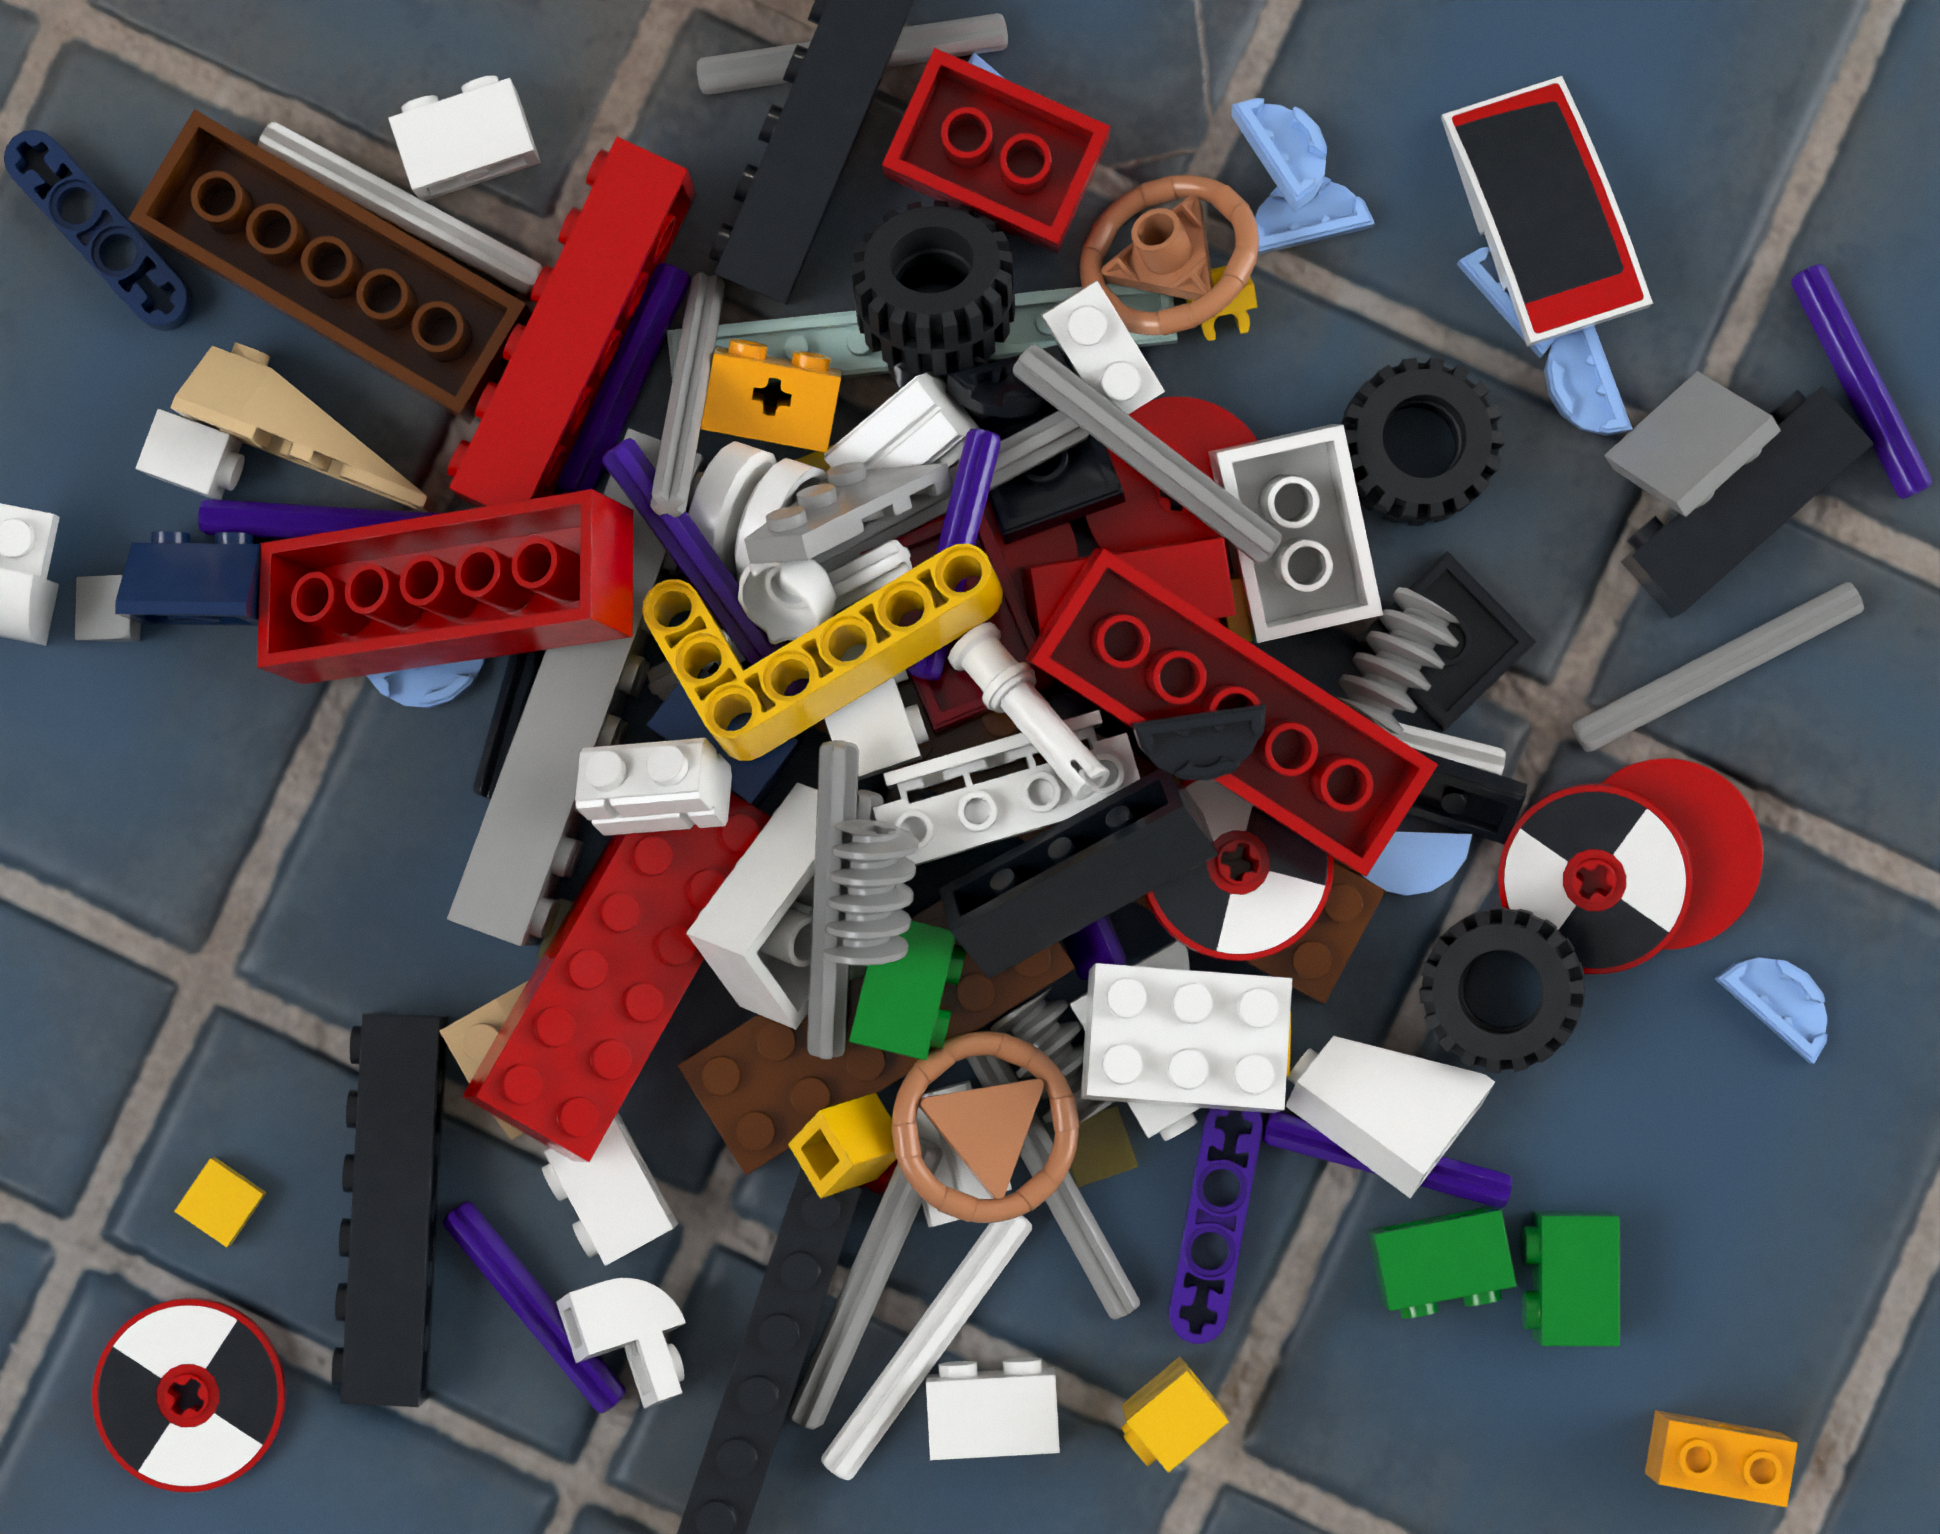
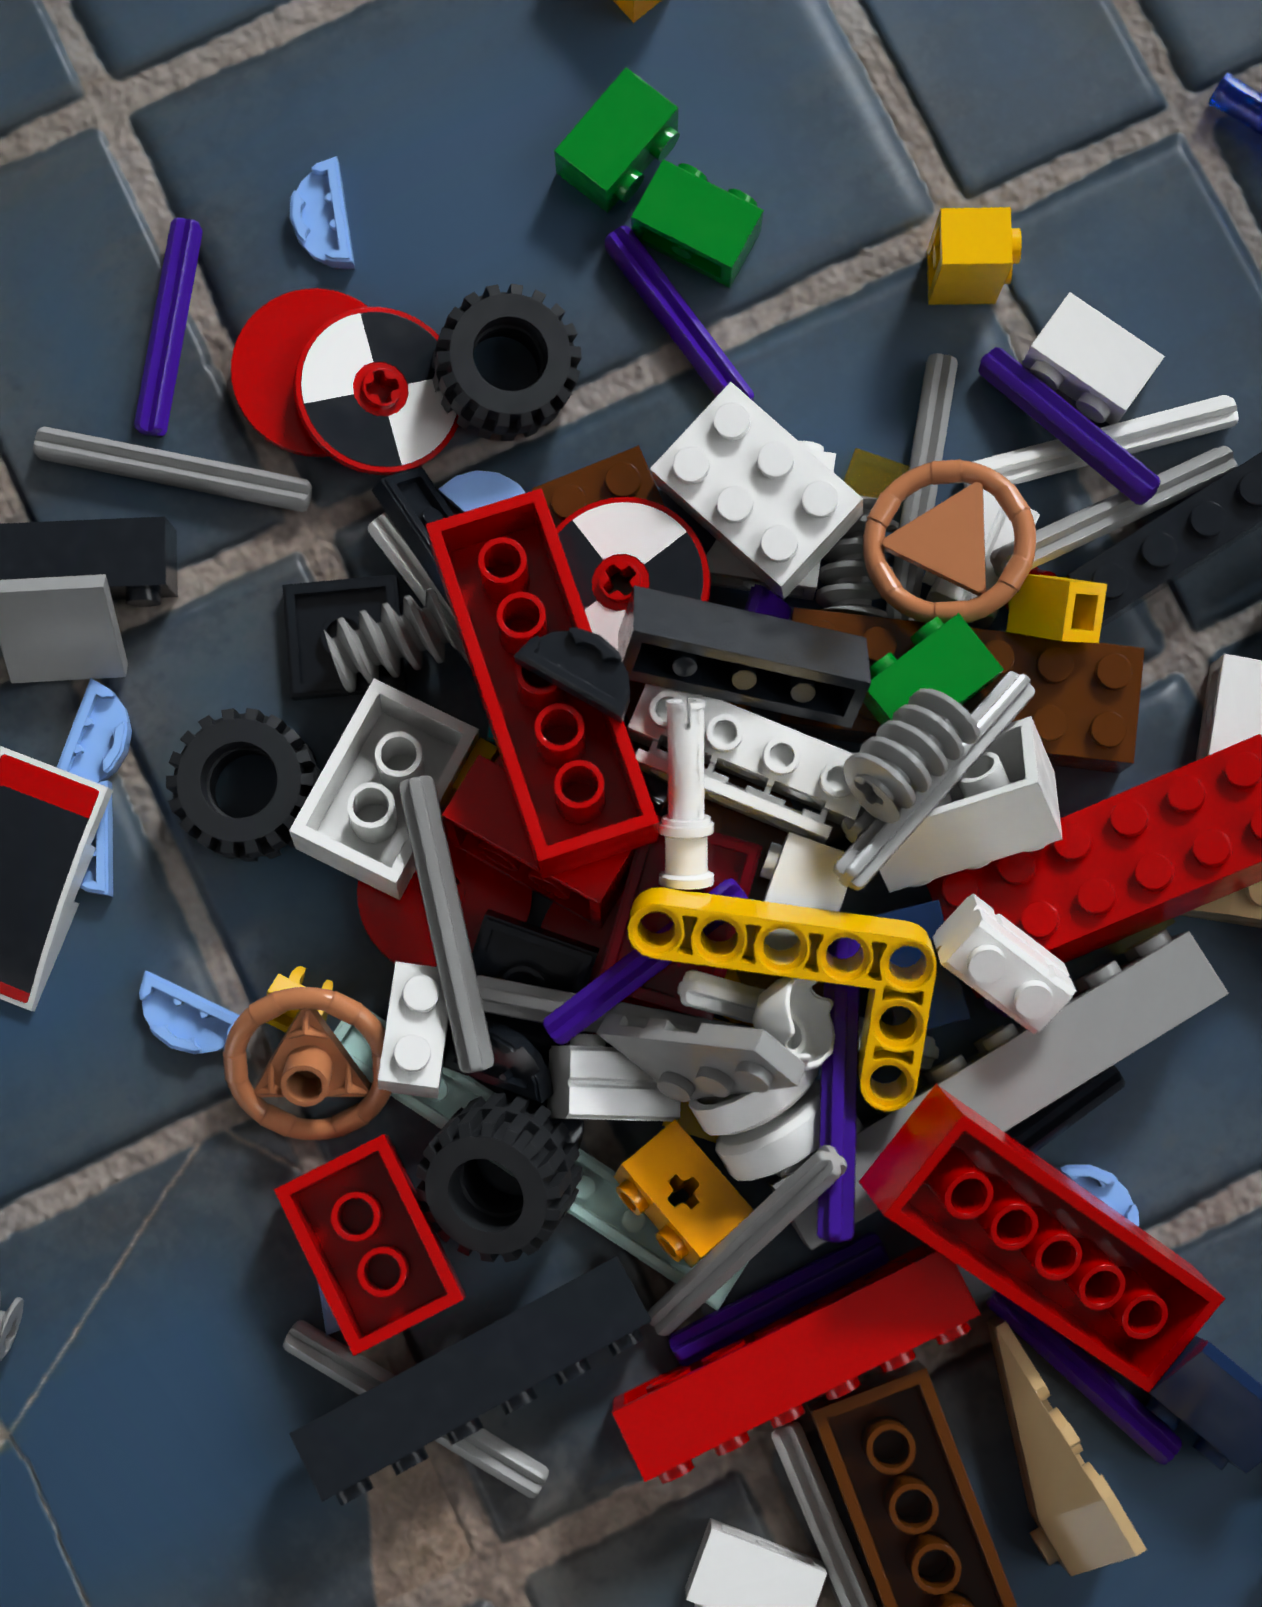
camera: 140 degrees left, 5 degrees down
(191, 456) = (1151, 1503): white brick -> none
(966, 1330) = (1069, 426): none -> dark purple axle
(1206, 1217) = (835, 377): dark purple beam -> none
(1287, 146) = (159, 1077): light blue tile -> none
(1386, 1106) = (651, 346): white slope -> none
(1830, 789) = (168, 327): none -> dark purple axle

